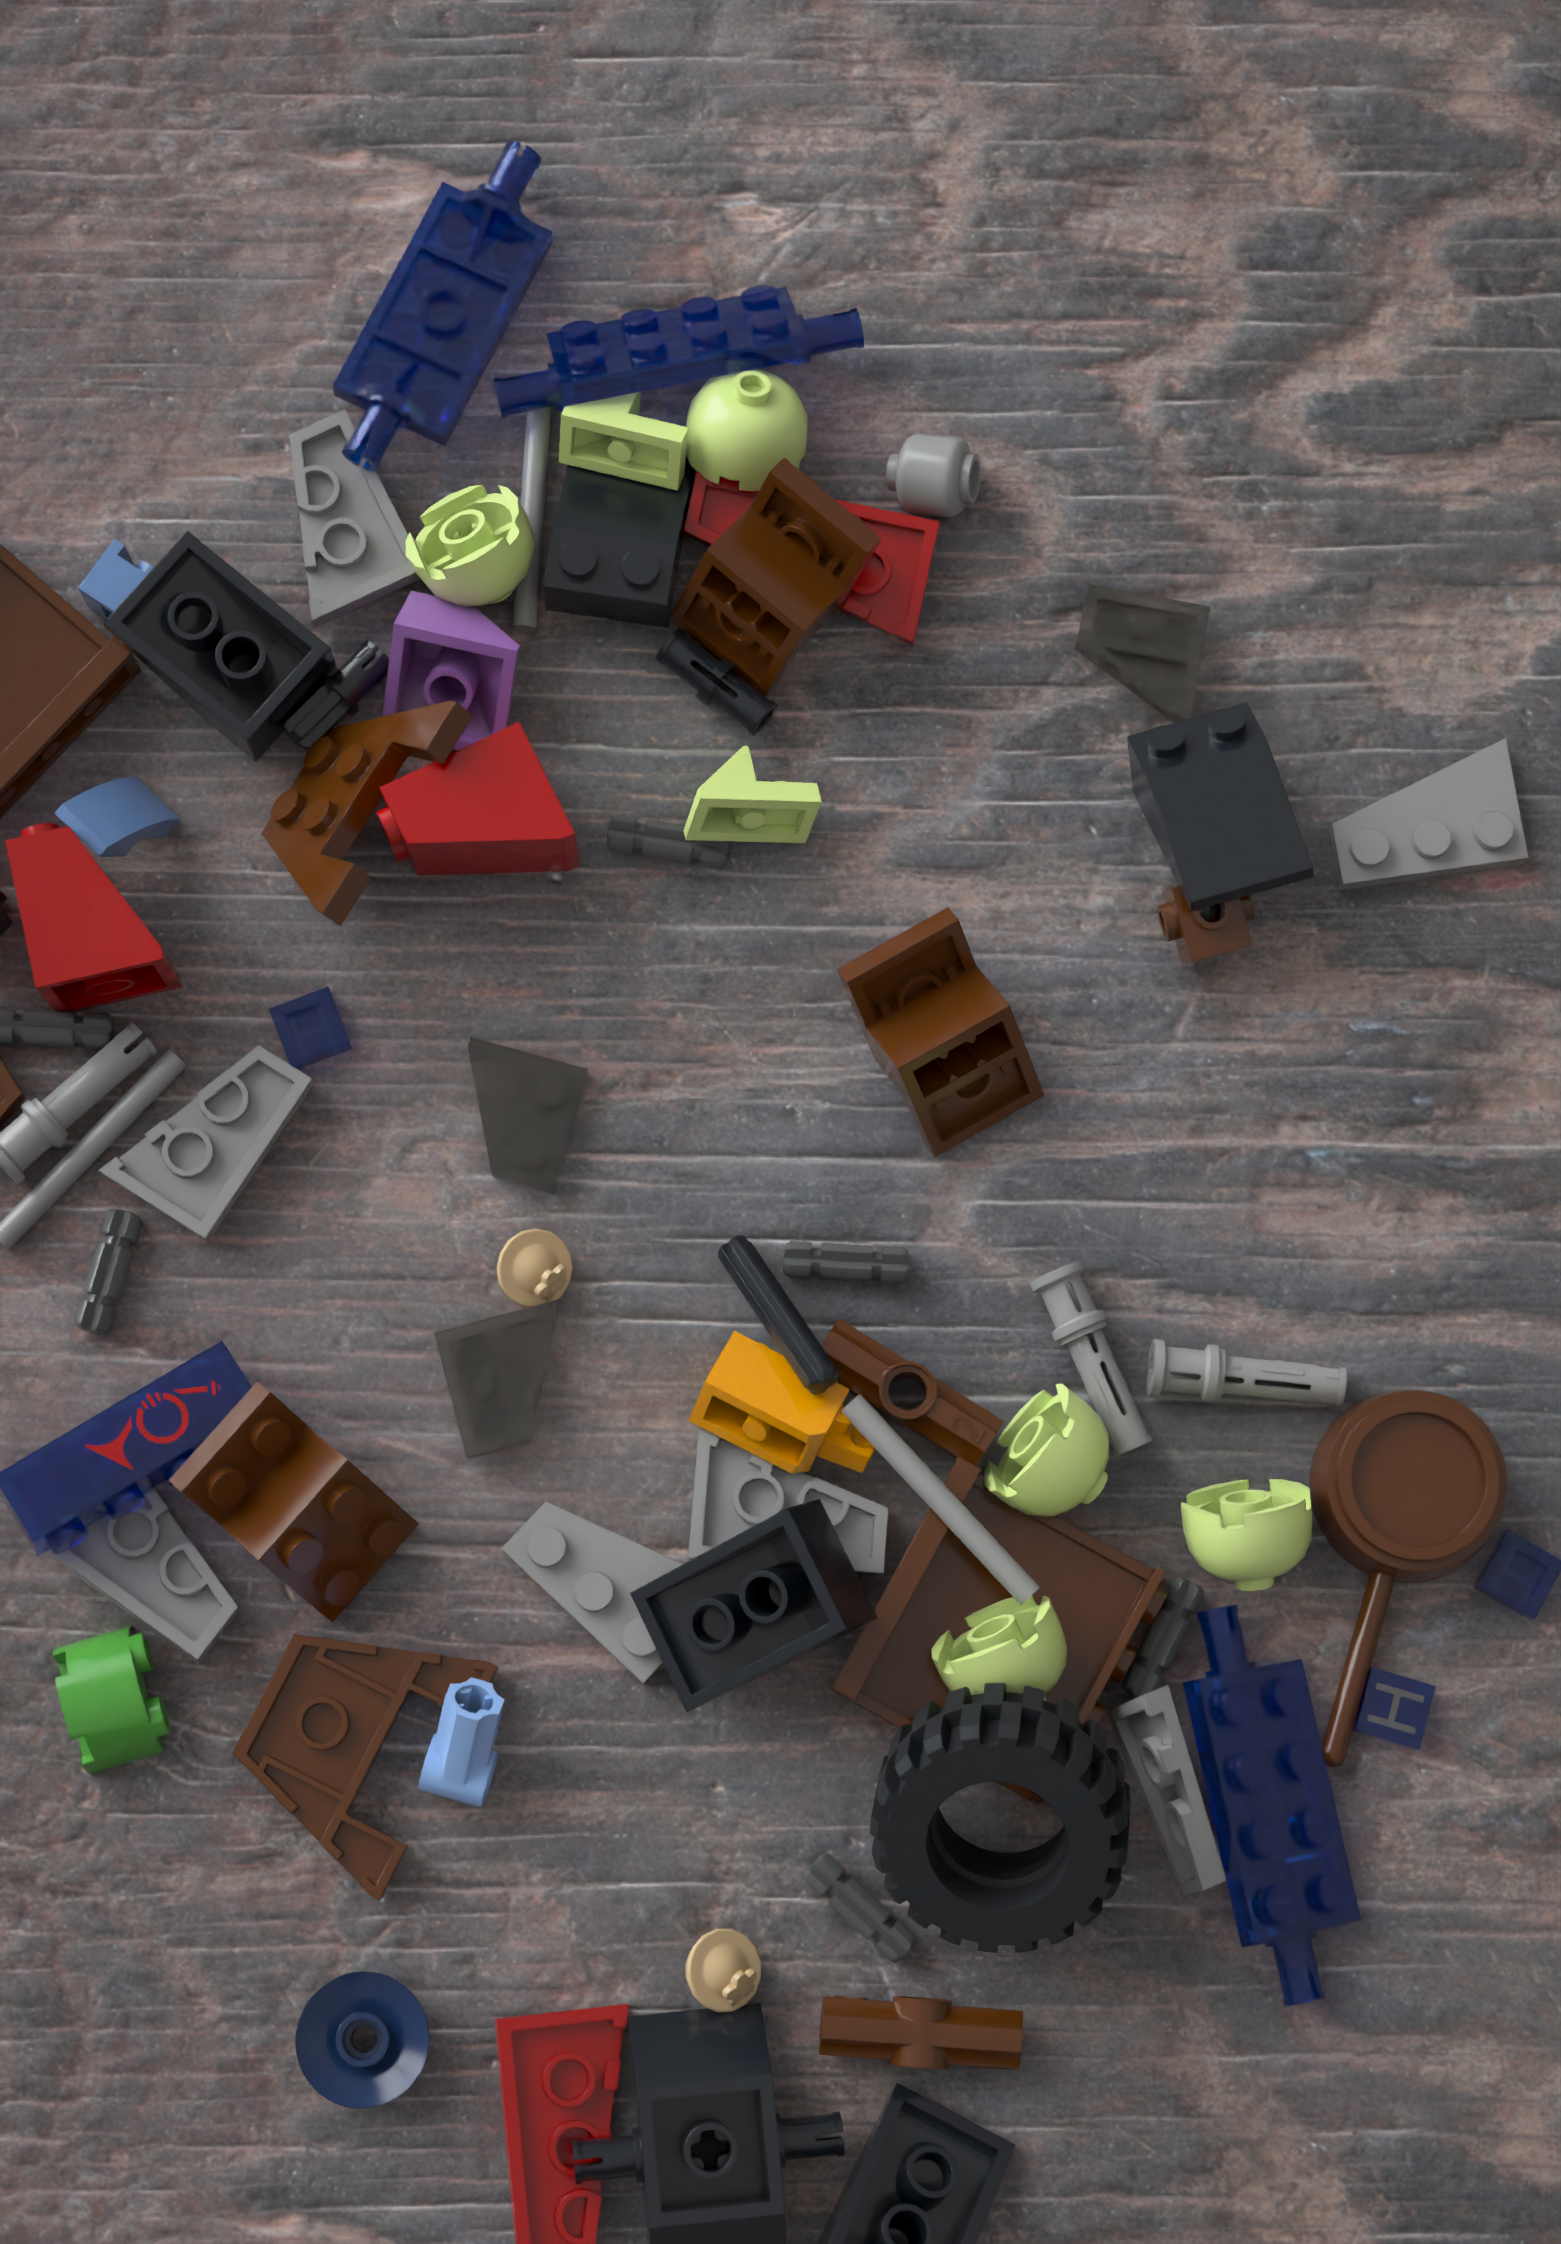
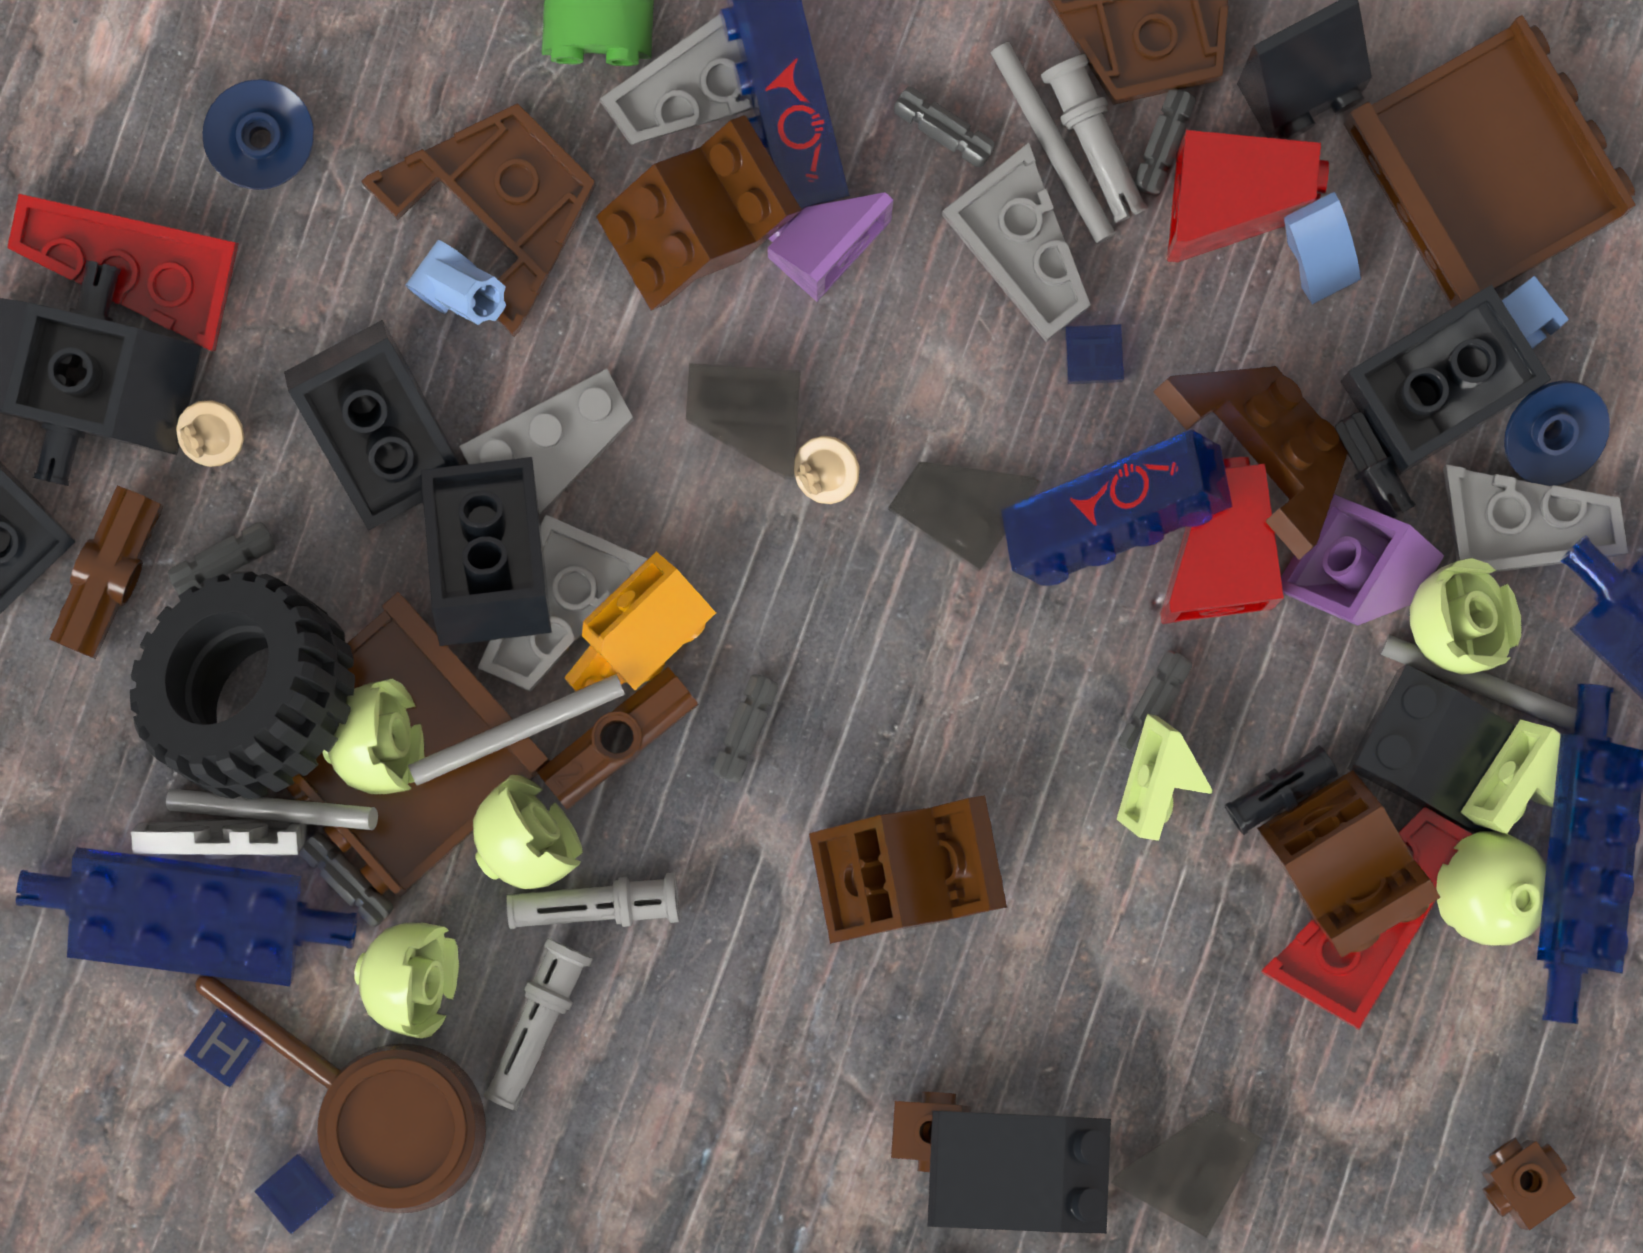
camera: 110 degrees right, 5 degrees up
(240, 518) = (1571, 443): none -> dark blue dish
(281, 1348) = (828, 239): none -> medium lavender slope
(479, 930) = (1117, 508): none -> clear blue brick
(649, 1791) = (370, 422): none -> black slope
(778, 1315) = (717, 653): black axle -> none
(934, 475) = (1404, 1040): light grey head -> none
(1037, 308) = (1546, 1187): none -> reddish brown brick
(1120, 1736) = (273, 809): none -> light grey bar

